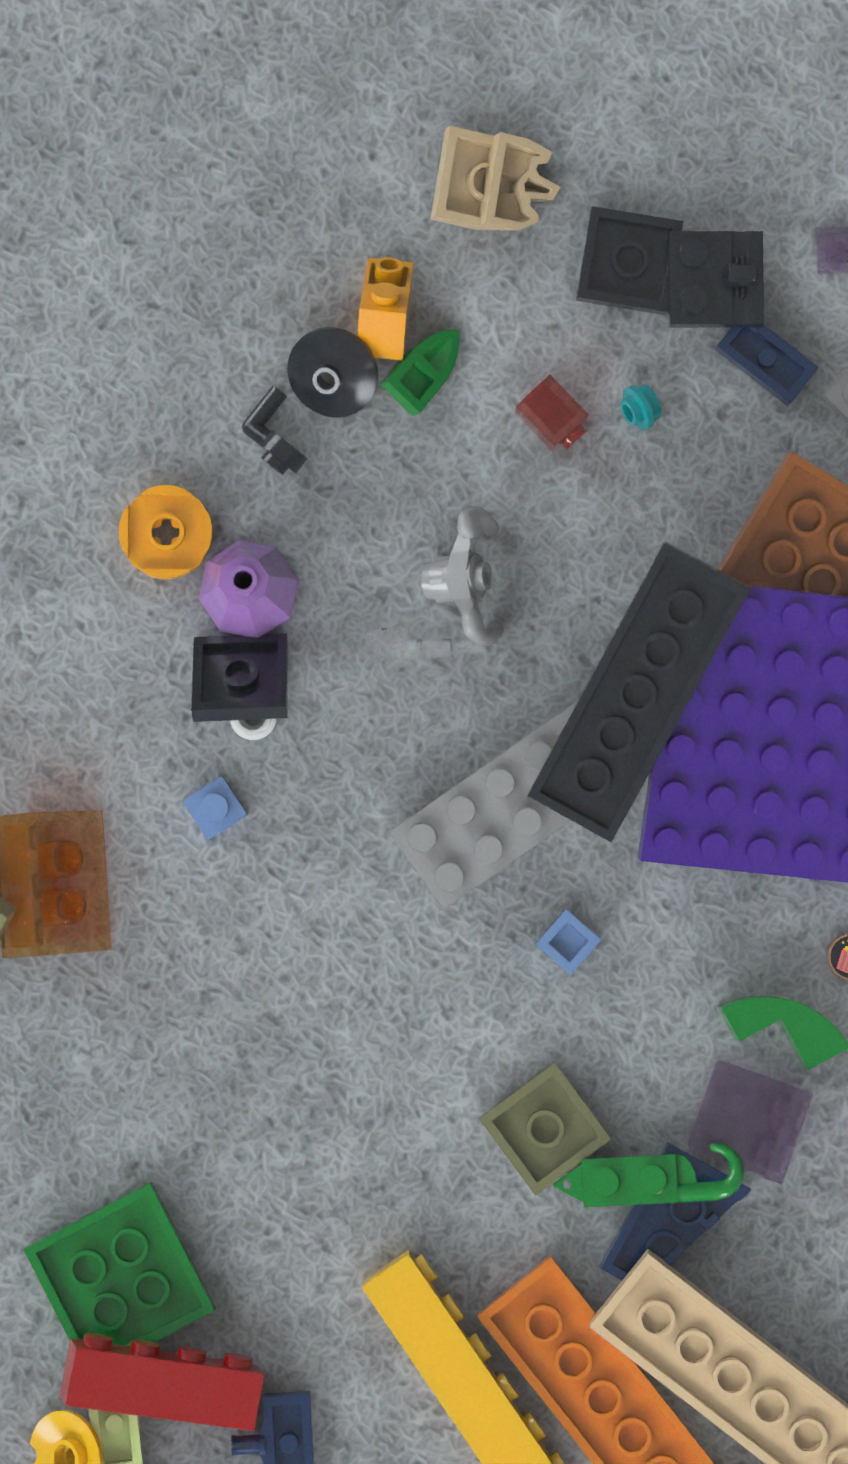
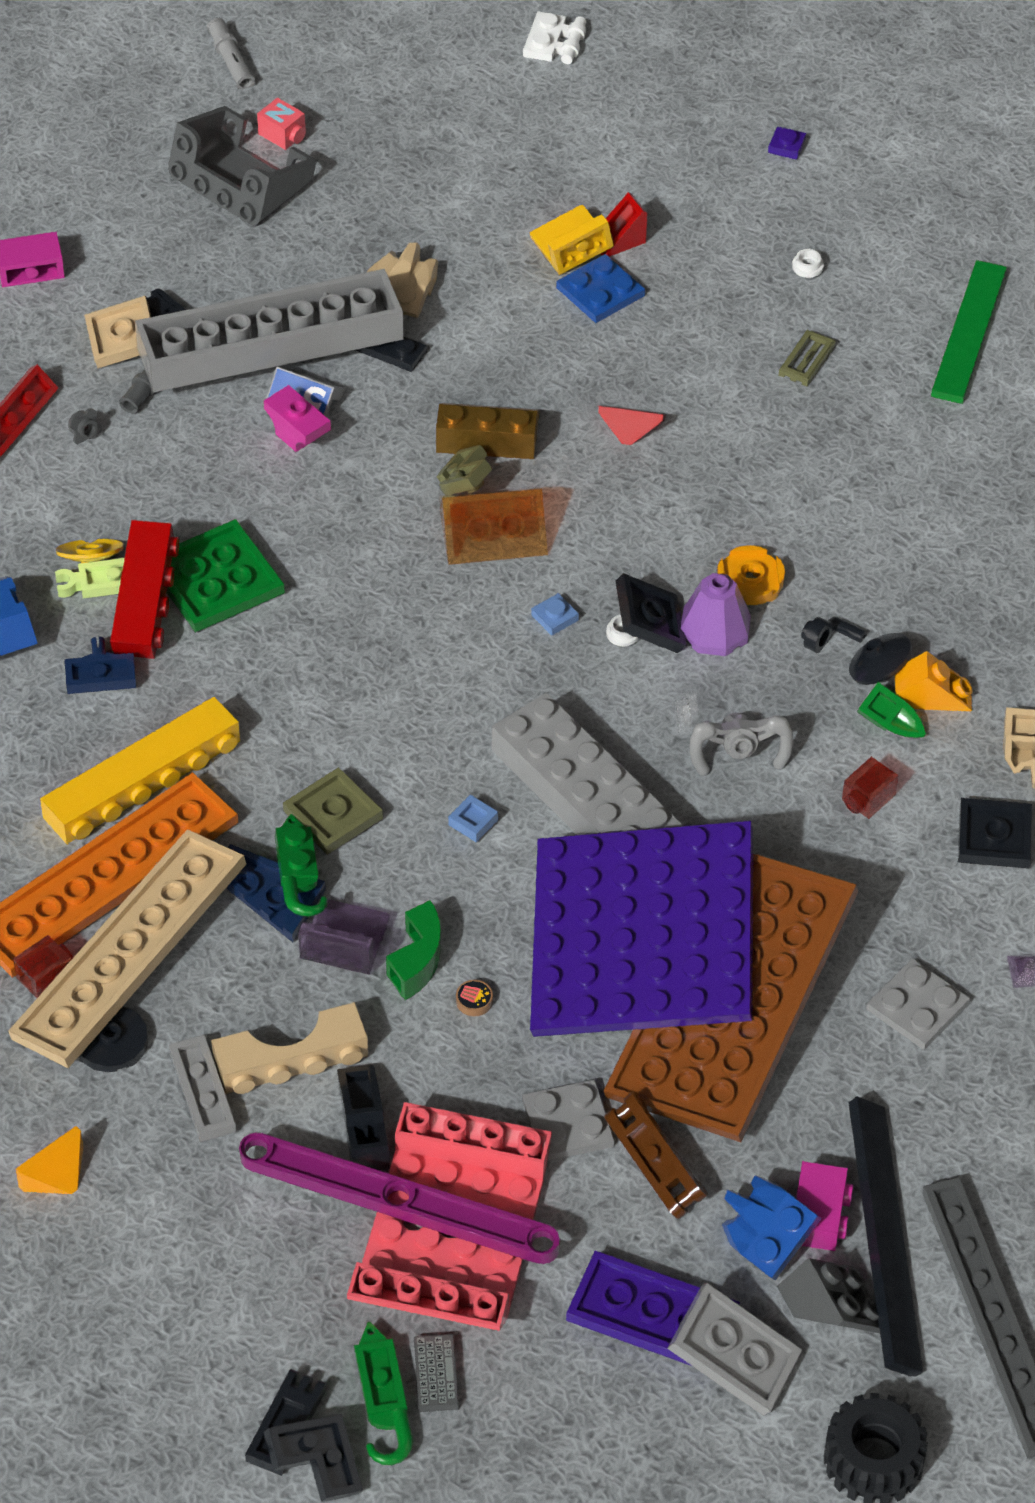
camera: 85 degrees right, 35 degrees down
(639, 691) = (664, 802): black plate -> none
(640, 406) = (883, 843): teal plate -> none
(715, 279) = (988, 877): black hinge -> none
(767, 361) = (934, 921): dark blue plate -> none

